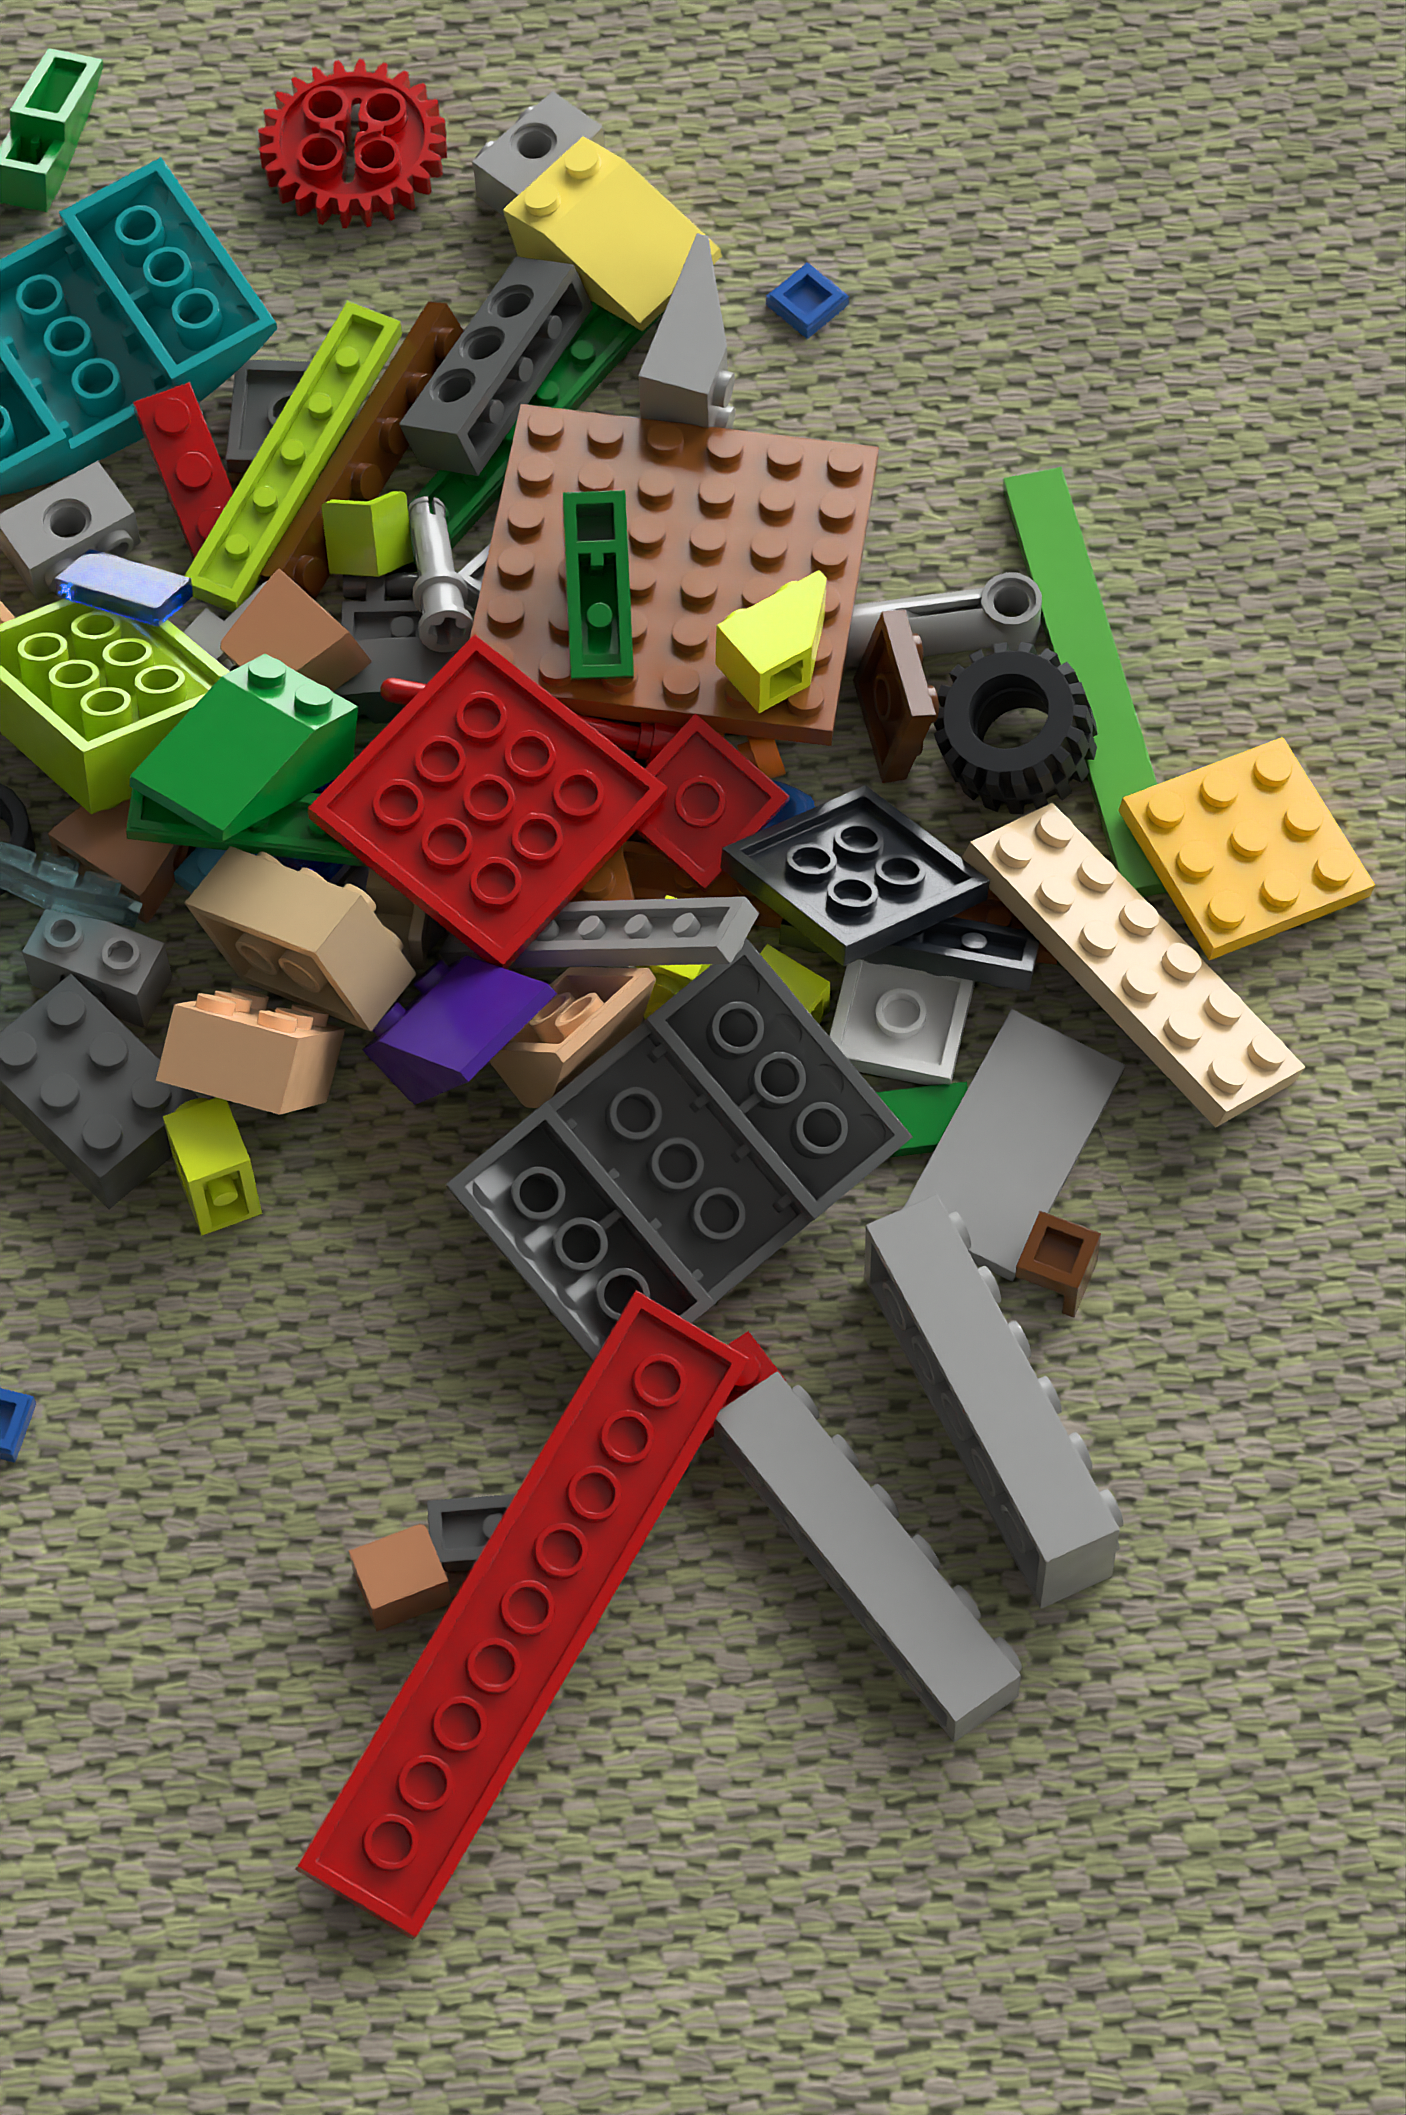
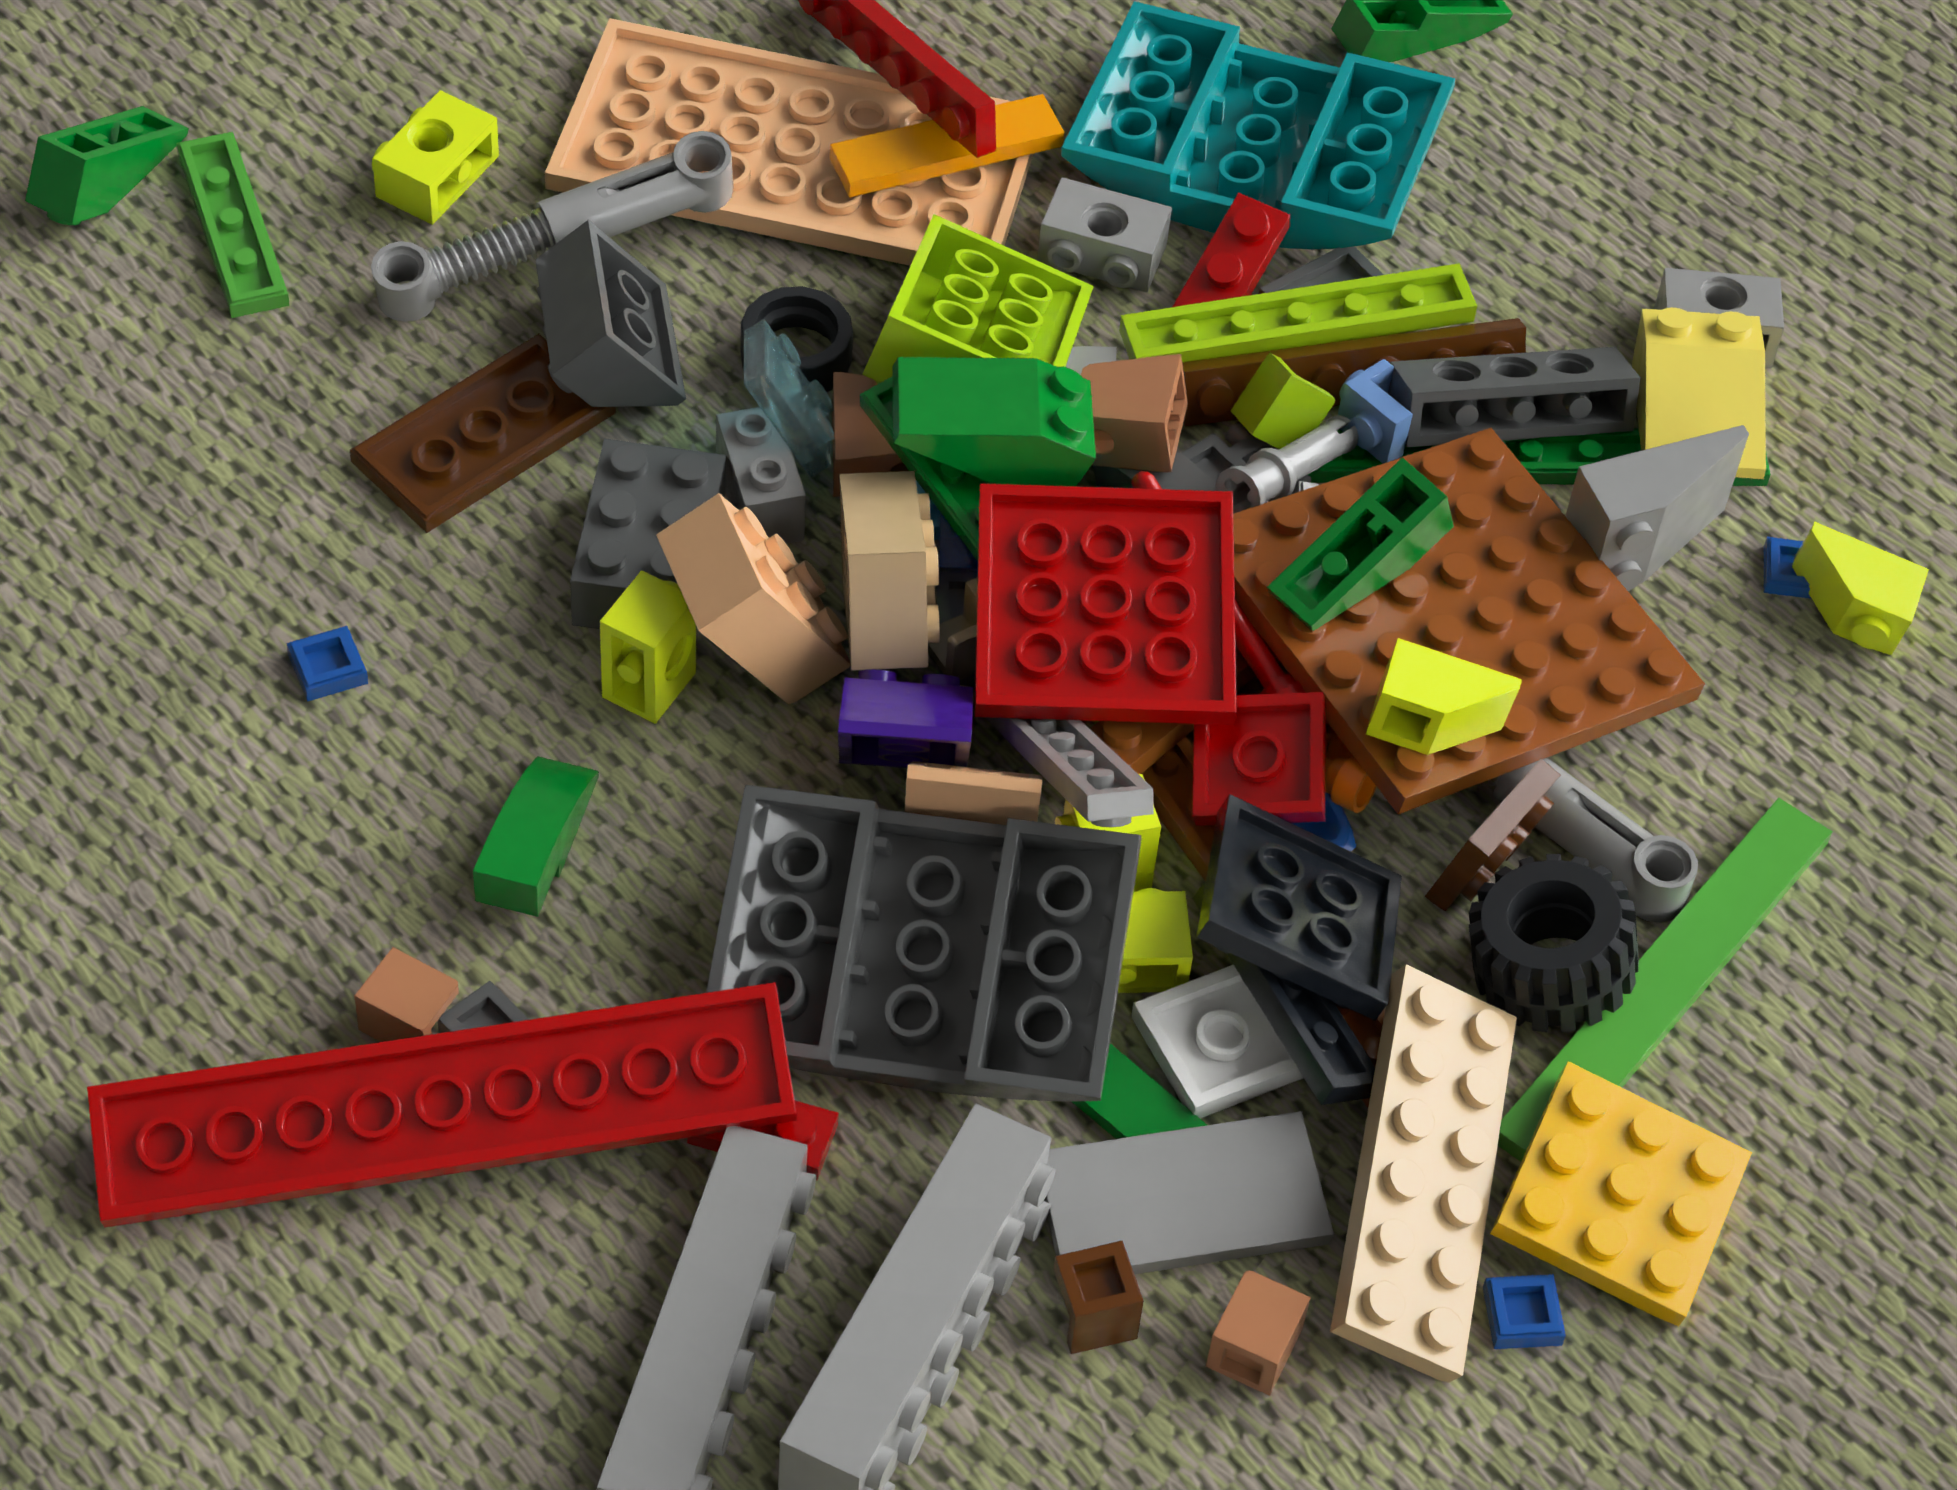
camera: 45 degrees right, 10 degrees down
(124, 587) = (1081, 286): clear blue tile -> none
(309, 1373) = (533, 835): none -> green slope
(312, 128) = (1607, 198): red gear -> none
(432, 474) = (1376, 415): none -> medium blue bracket
(874, 273) = (1859, 587): none -> neon yellow slope
(1172, 1174) = (1258, 1331): none -> nougat panel
(1282, 987) = (1523, 1311): none -> blue tile

